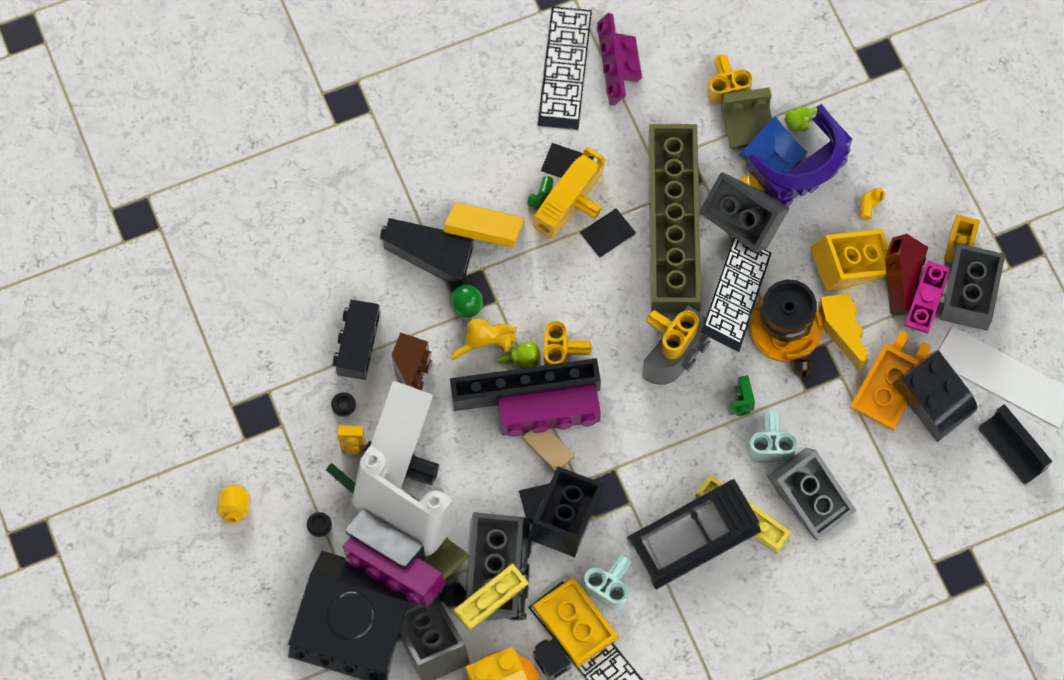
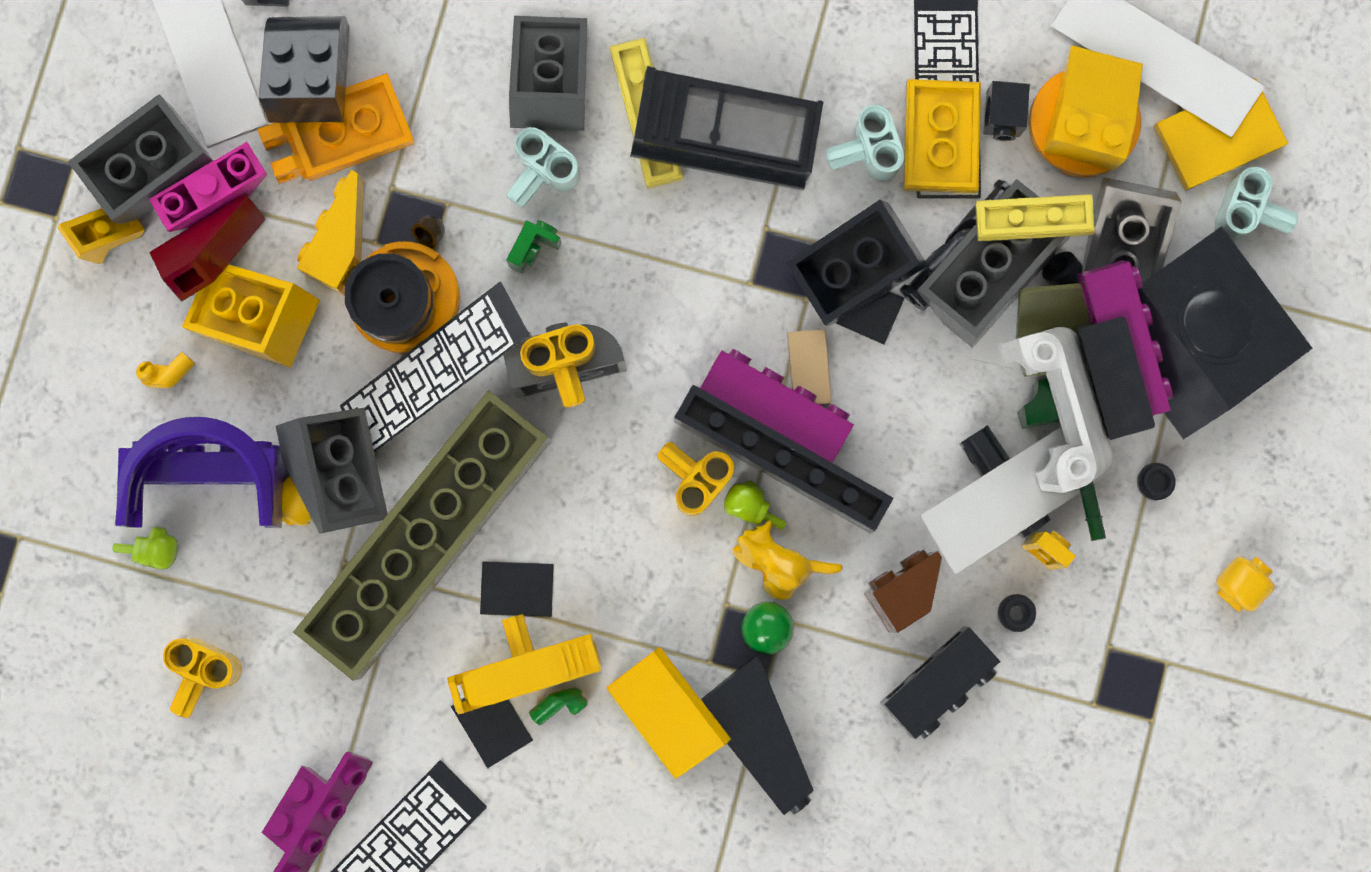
camera: 145 degrees left, 15 degrees up
(746, 115) = (218, 597): olive bracket -> none
(775, 147) = (224, 530): blue plate -> none

